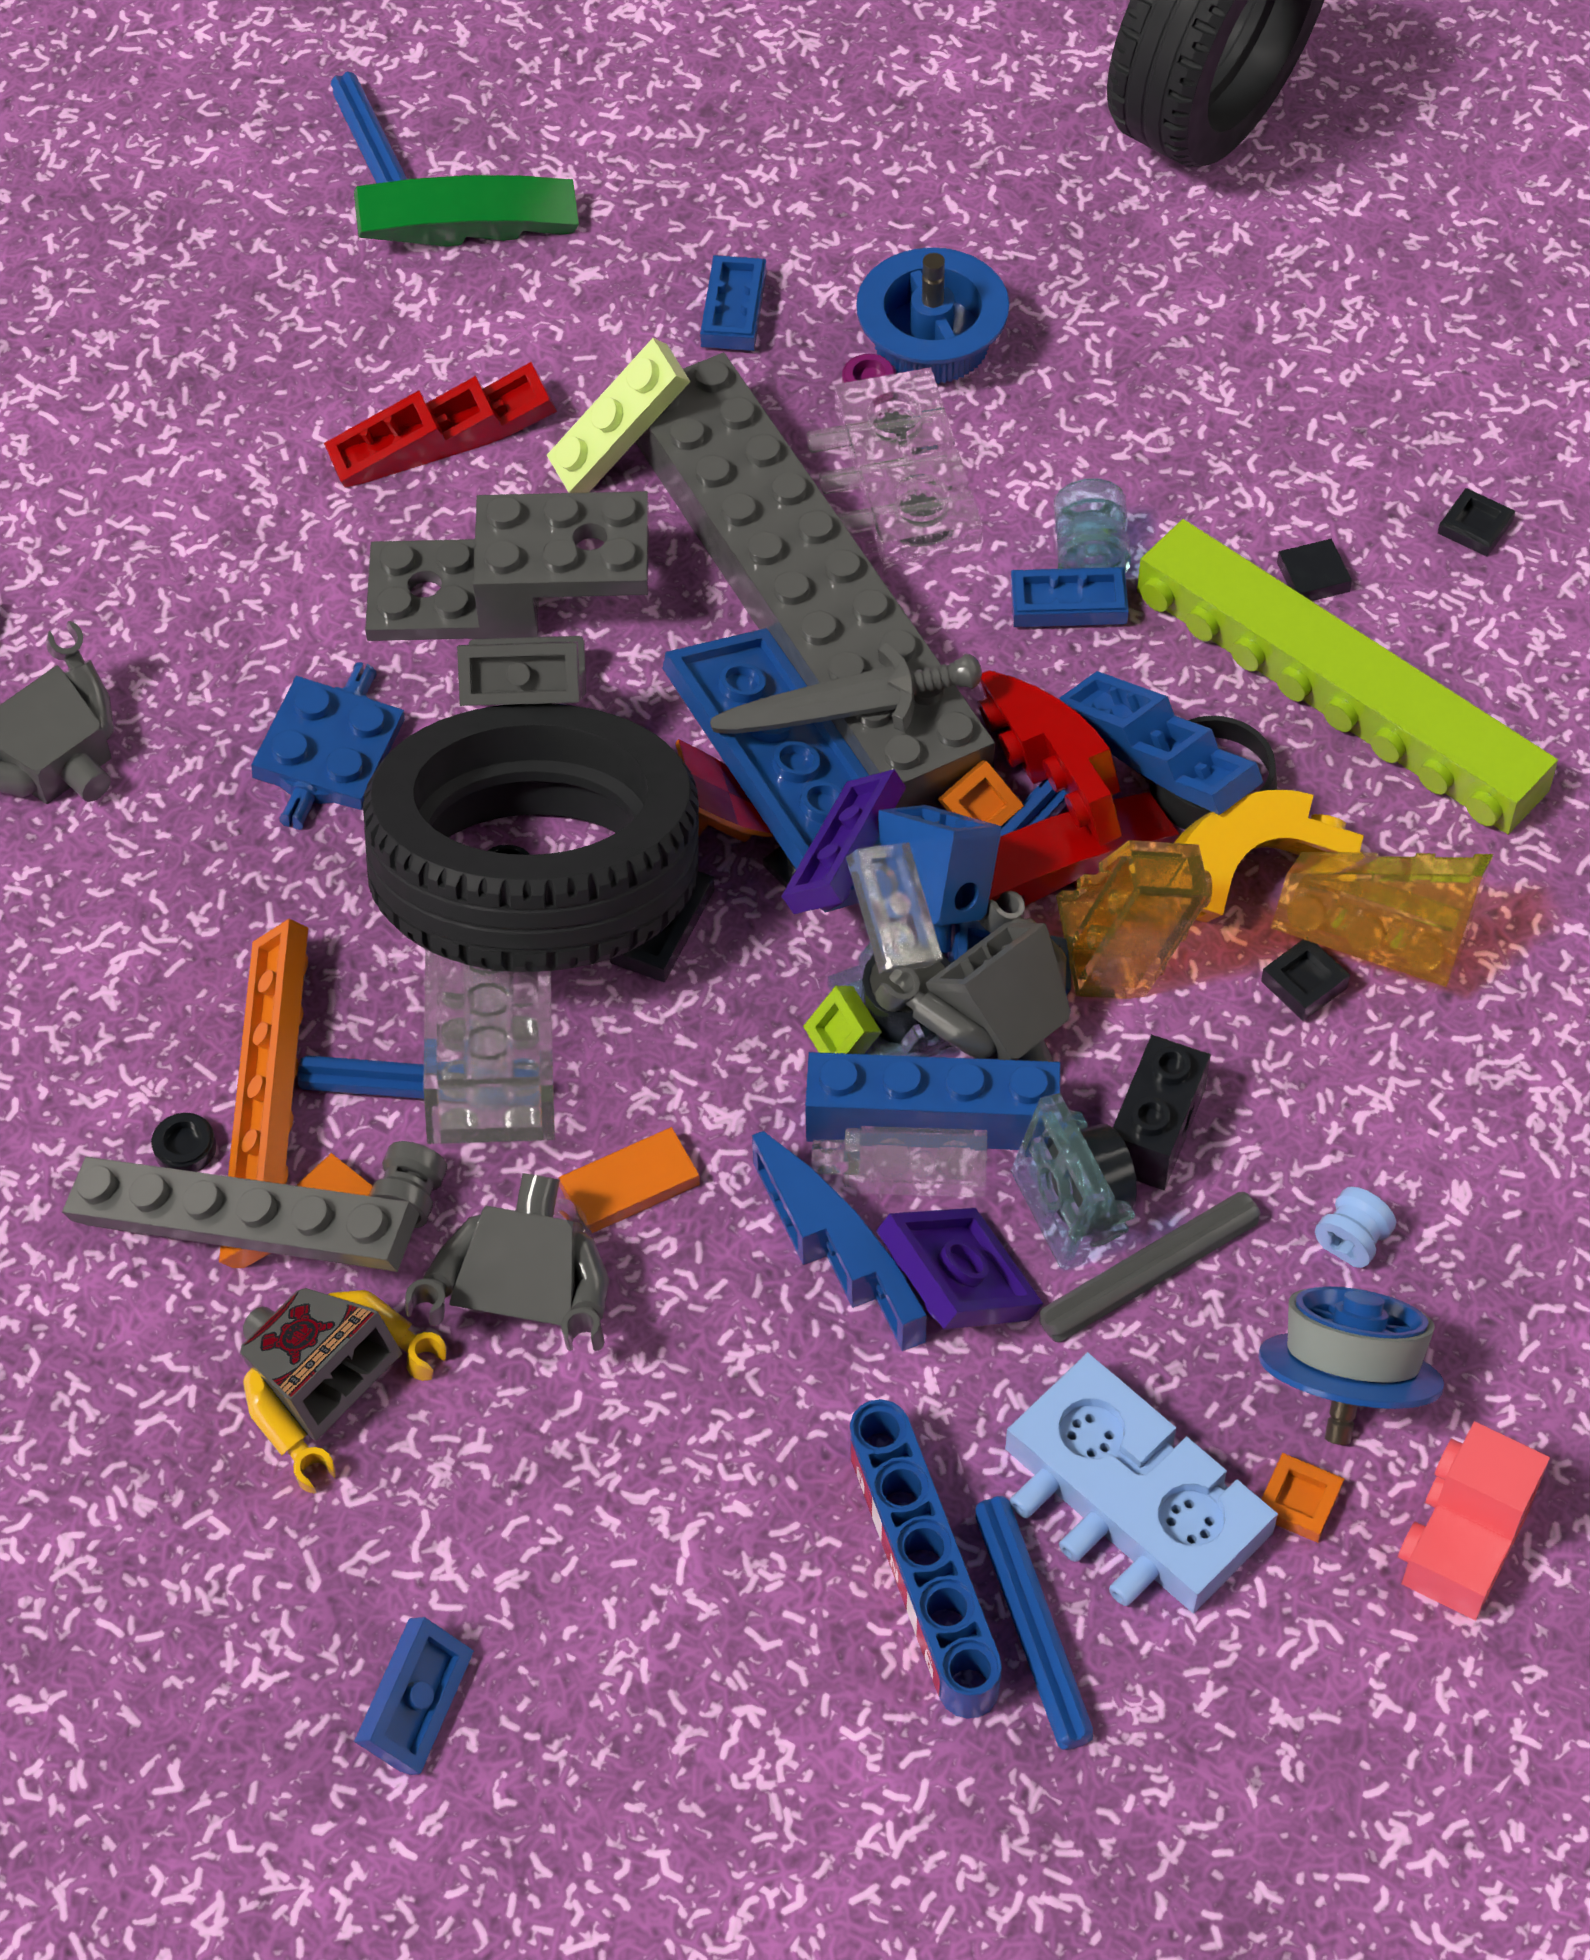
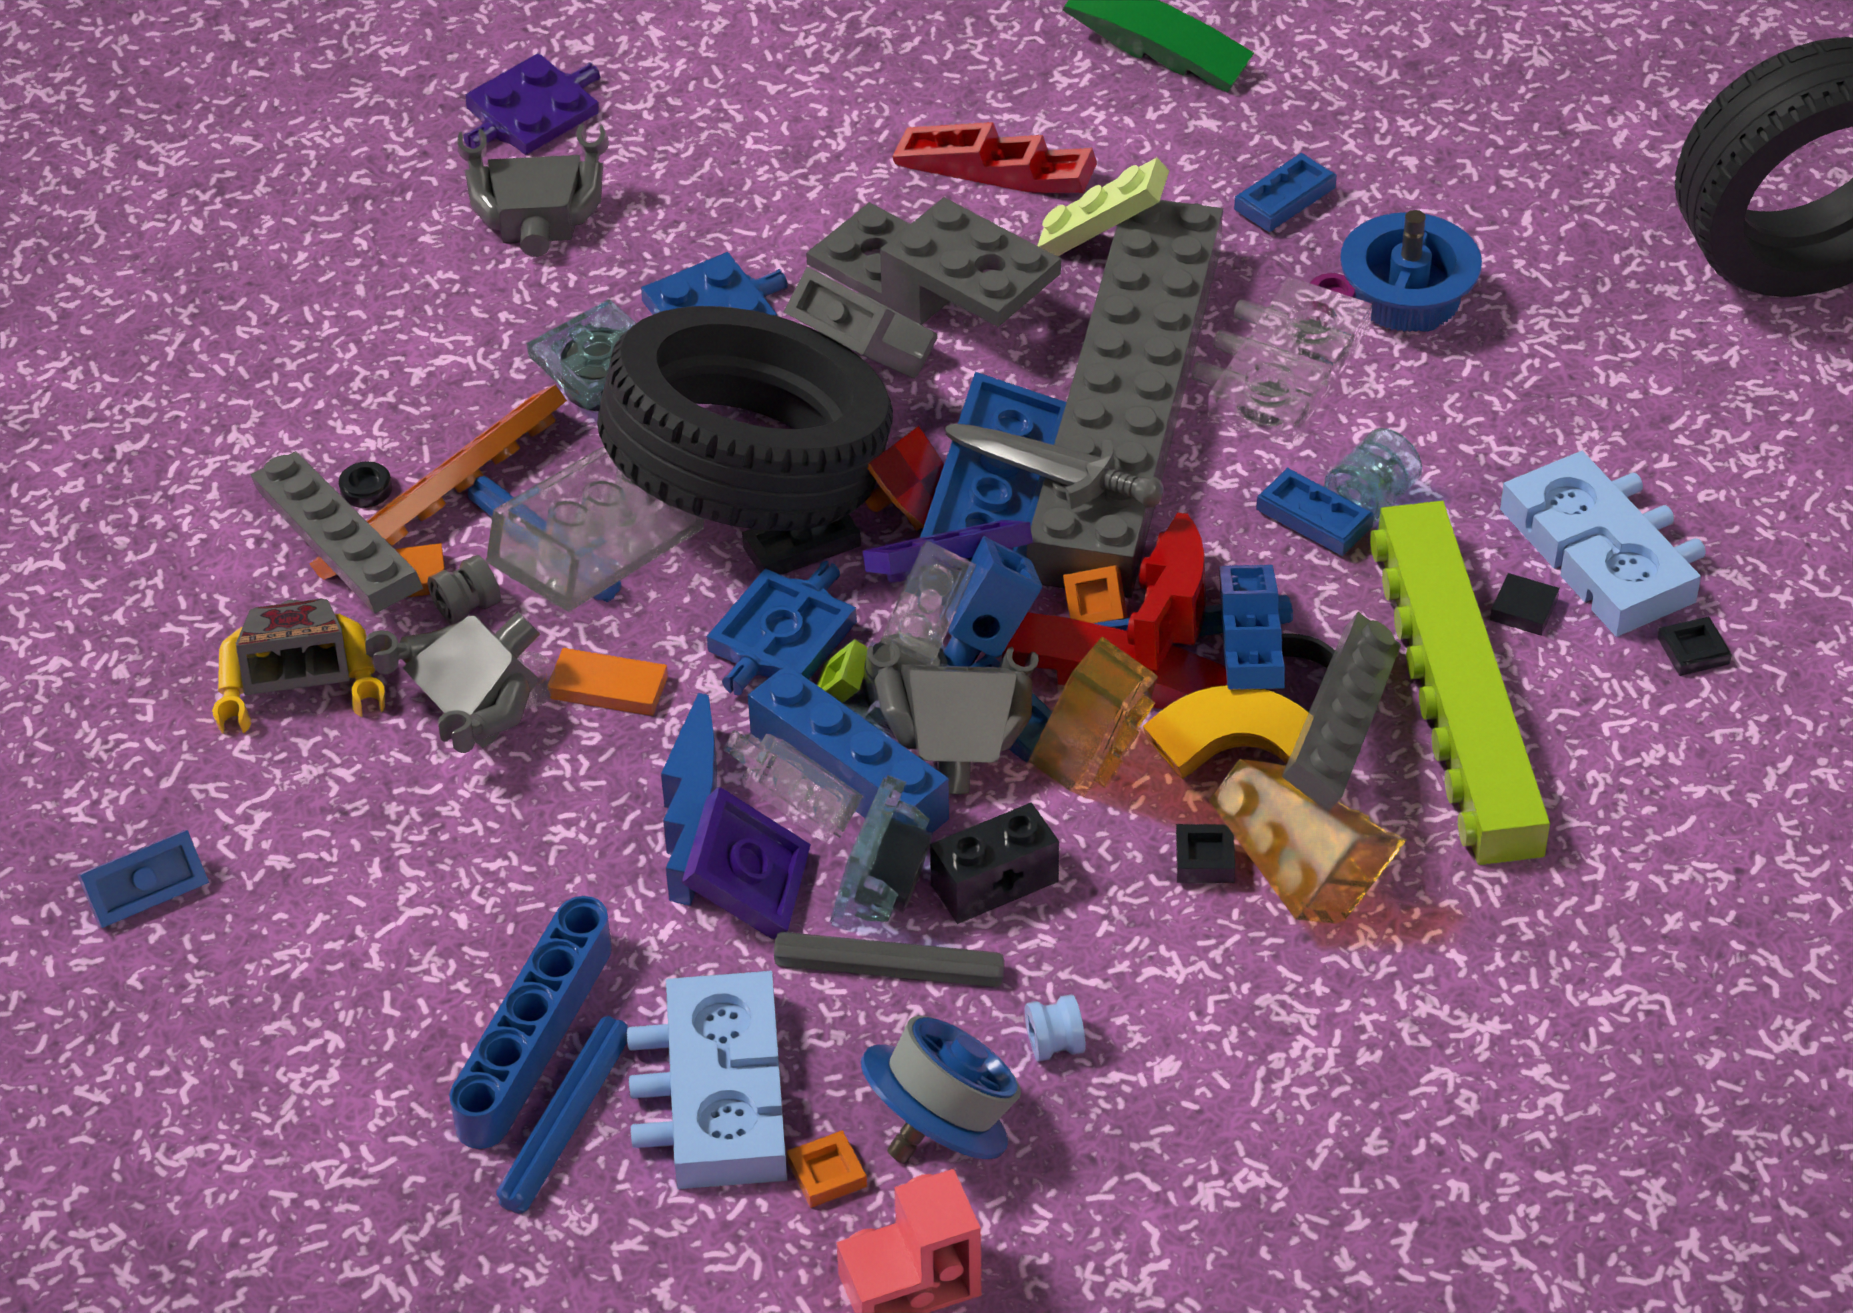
camera: 40 degrees right, 10 degrees down
(290, 864) = (581, 351): none -> clear light blue piece
(737, 1019) = (780, 625): none -> blue plate
(1320, 771) = (1342, 711): none -> dark grey plate
(1340, 476) = (1604, 541): none -> light blue piece

